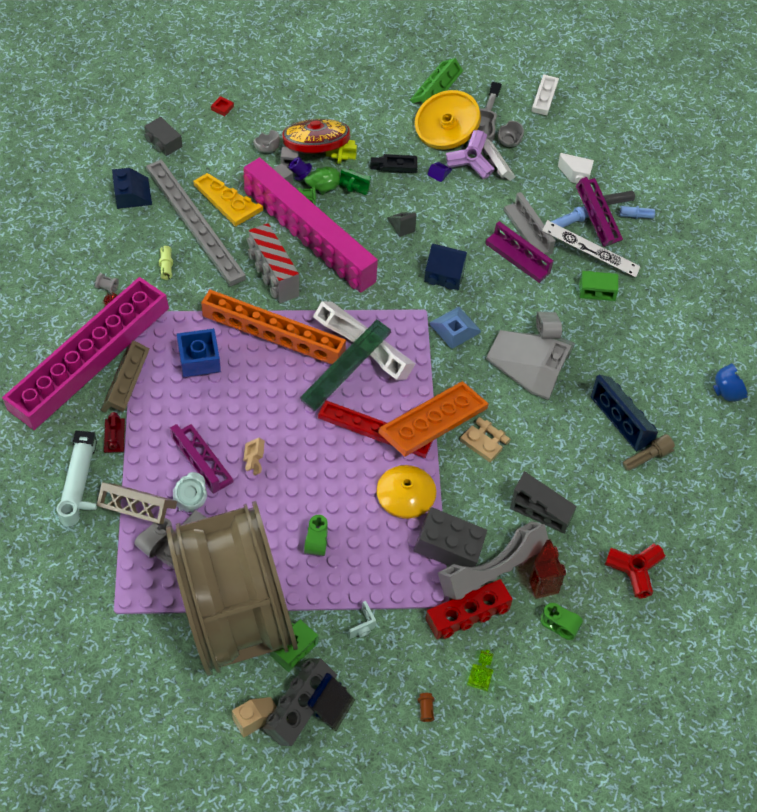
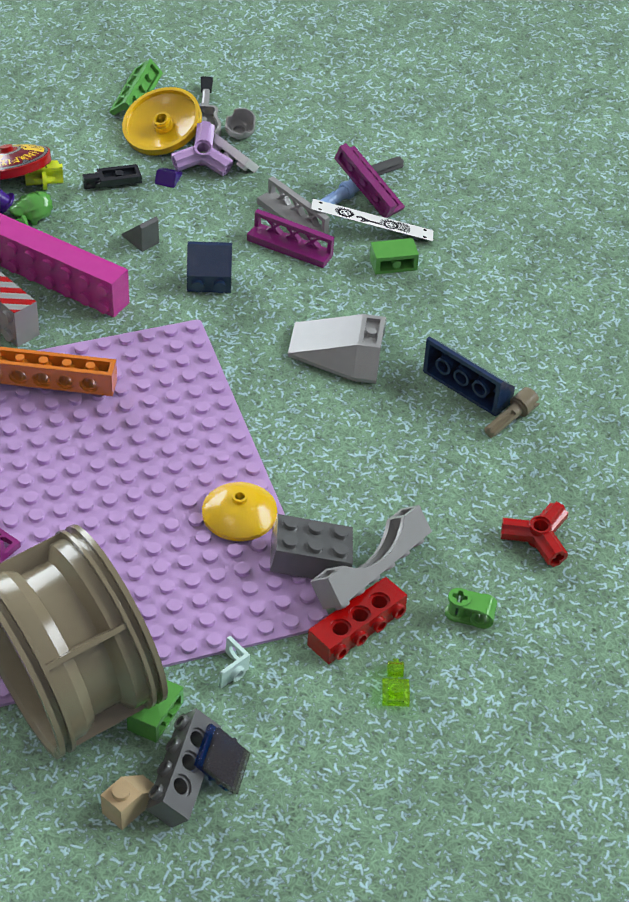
camera: 15 degrees left, 10 degrees down
(253, 452) = (36, 509): tan plate -> none
(316, 537) = (146, 580): bright green piece -> none
(345, 365) = (122, 390): clear green tile -> none
(354, 181) = (70, 203): green hips -> none
(359, 423) = (179, 452): red tile -> none
(385, 355) = (137, 359): white arch -> none
(426, 707) = (339, 733): dark orange pin -> none
(433, 418) = (247, 426): orange plate -> none
(455, 327) = (240, 330): medium blue slope -> none
(481, 443) = (313, 444): tan plate -> none
(542, 503) = (402, 486): dark grey wedge -> none
(545, 95) = (266, 80): white plate -> none
(547, 572) = (438, 558): clear red slope -> none
(549, 325) = (351, 303): light grey beam -> none
(575, 167) = (324, 144): white slope -> none
(636, 212) = (411, 177): light blue axle -> none
(729, 384) = (578, 324): blue cylinder -> none

